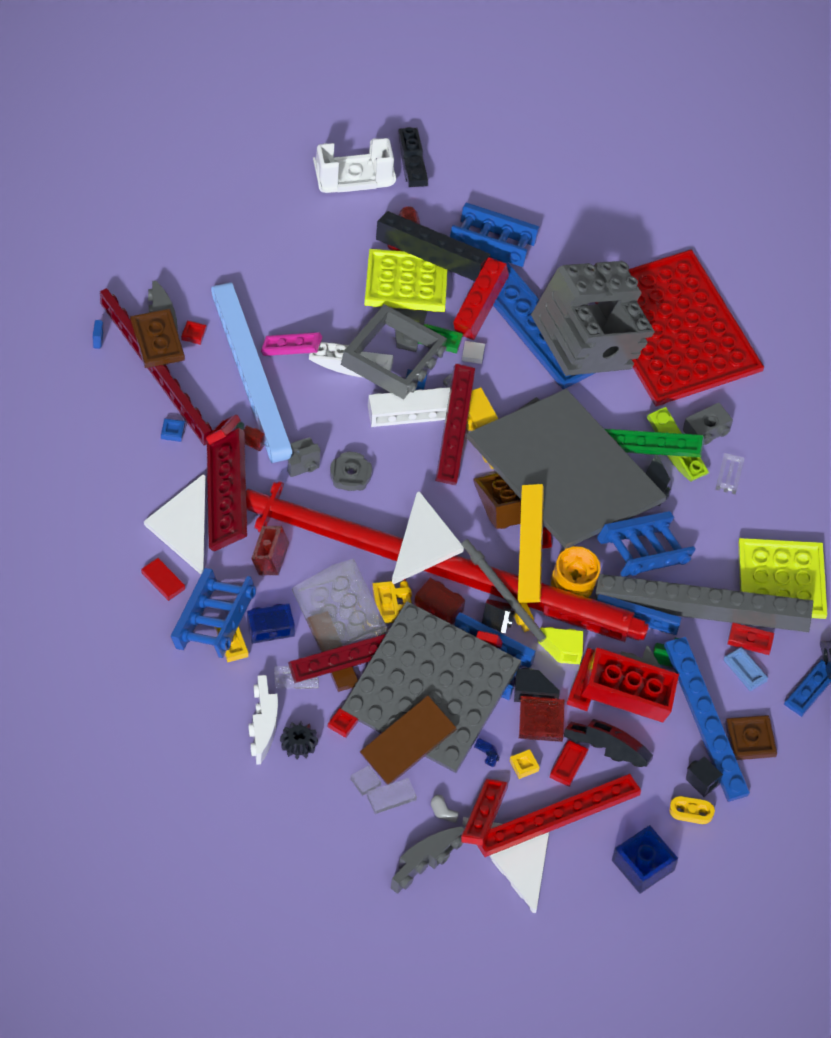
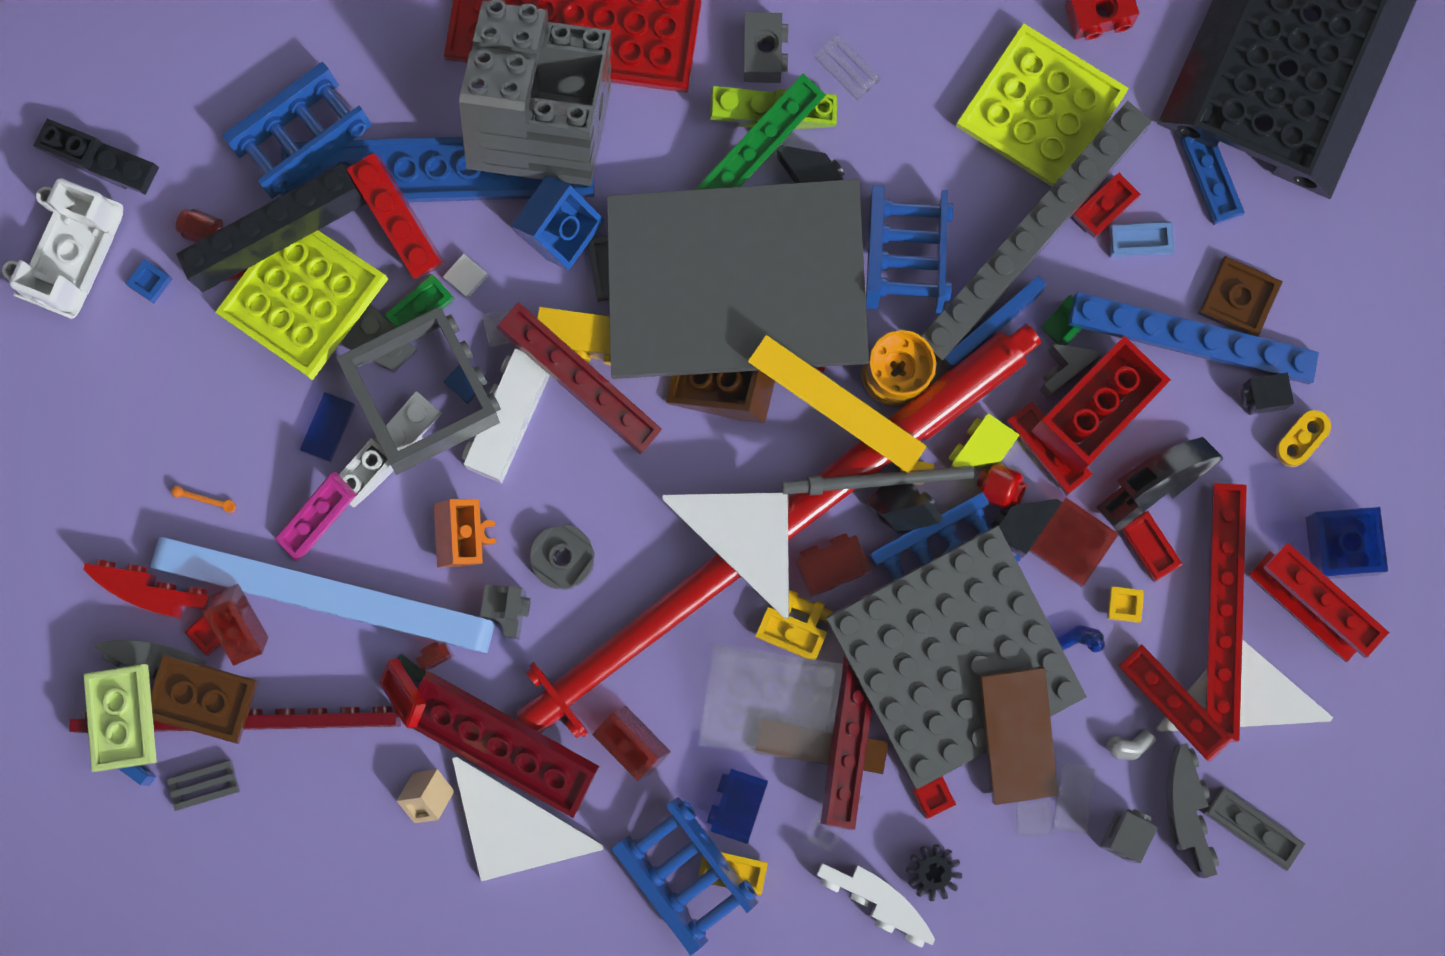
camera: 50 degrees left, 25 degrees up
(112, 368) = (176, 793): none -> dark grey tile
(122, 306) = (119, 718): none -> yellowish green tile
(163, 579) = (585, 906): red tile -> none
(172, 430) = (353, 755): blue tile -> none
(173, 471) = (425, 796): none -> tan panel
(197, 293) = (138, 589): none -> red slope
(208, 335) = (235, 624): none -> clear red brick
(269, 308) = (228, 506): none -> orange hinge
(329, 414) = (460, 533): none -> orange brick
(342, 330) = (327, 427): none -> clear blue tile
(364, 214) = (148, 281): none -> blue tile
(389, 824) = (1129, 835): none -> dark grey brick
(440, 902) = (1254, 828): none -> dark grey tile
(490, 638) = (939, 543): red tile -> none
(533, 371) = (557, 222): none -> blue brick
(548, 663) = (1002, 486): none -> red head
(596, 852) = (1318, 603): none -> red fence

